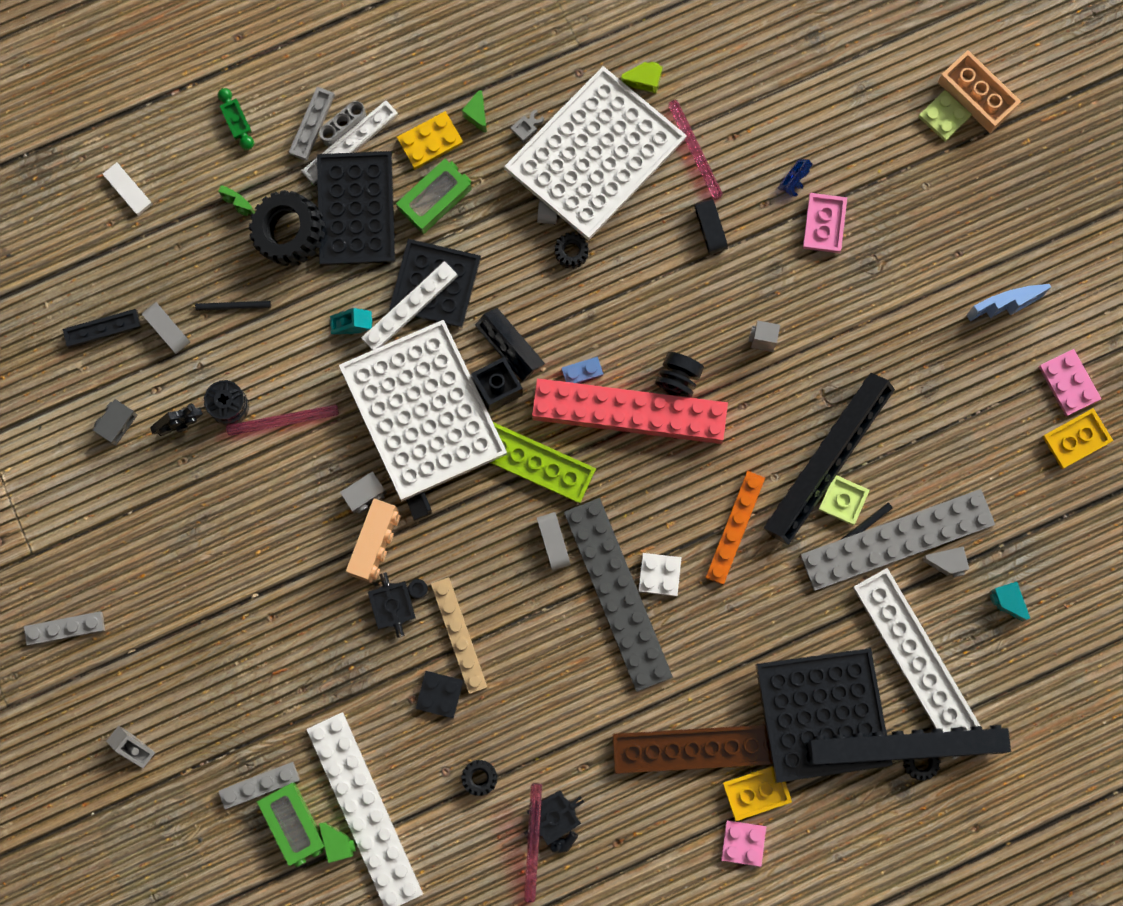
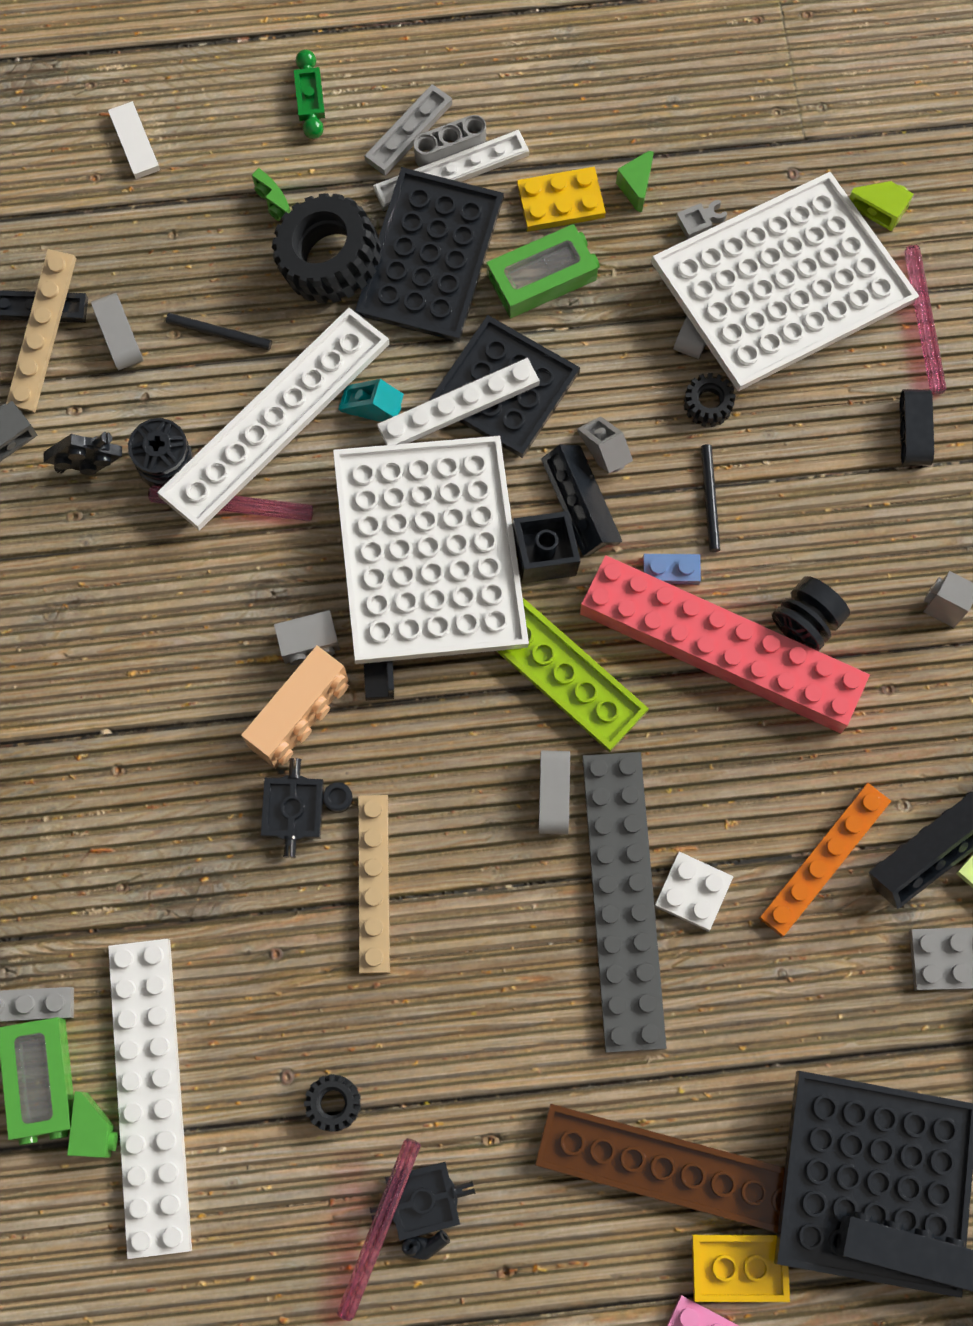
camera: 15 degrees right, 5 degrees down
(115, 344) = (41, 330): none -> tan plate
(291, 354) = (273, 419): none -> white plate
(439, 694) = (316, 960): black plate -> none
(513, 302) = (606, 444): none -> light grey slope
(592, 315) = (710, 498): none -> black bar

